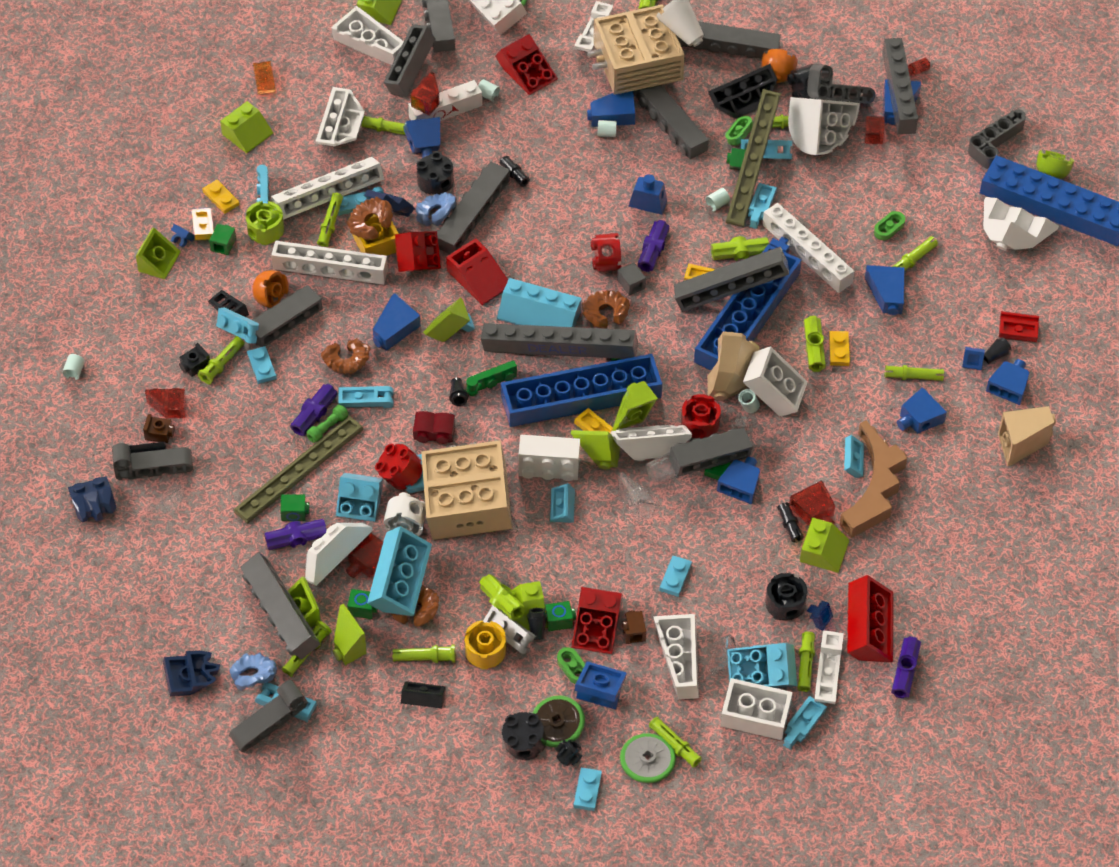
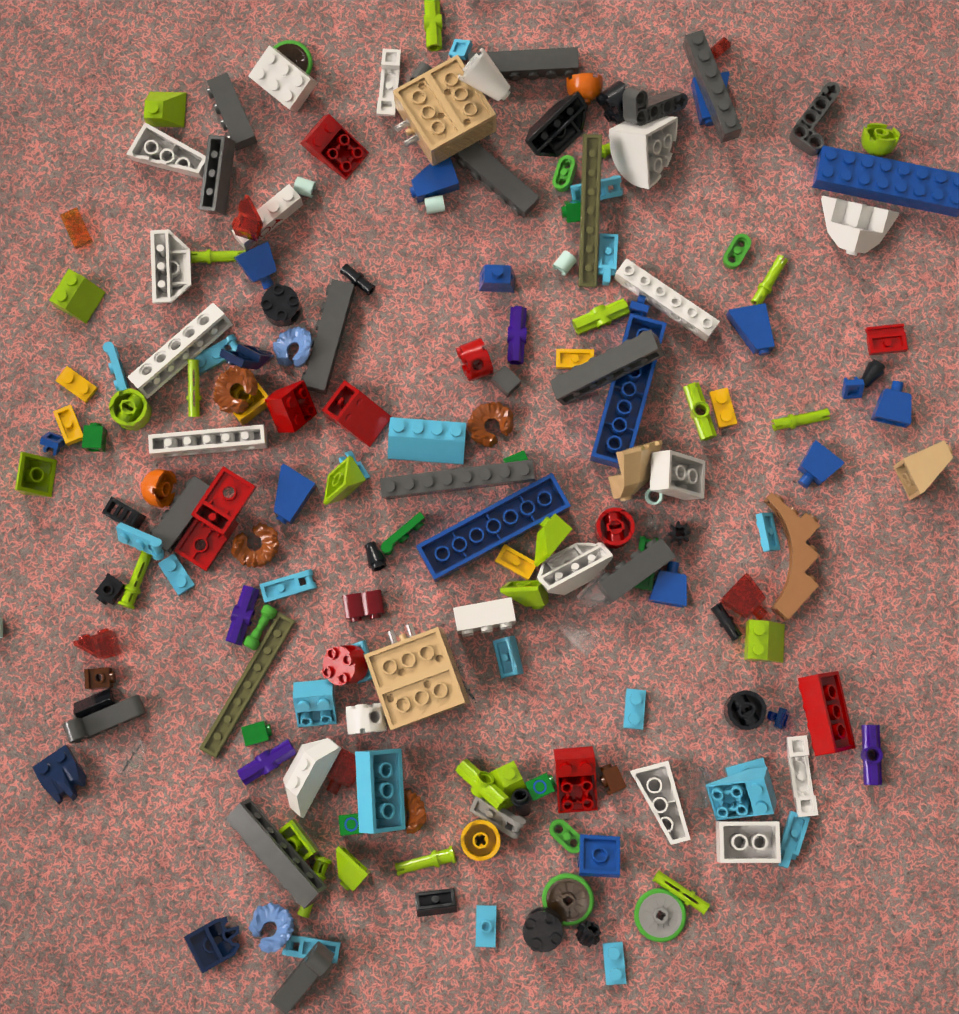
camera: 15 degrees left, 25 degrees up
(314, 323) = (215, 518): none -> red bracket
(467, 725) = (485, 926): none -> medium azure plate
(764, 437) = (684, 533): none -> black gear
(806, 655) = (779, 778): lime pin -> none
(874, 130) = (695, 139): clear red brick -> none

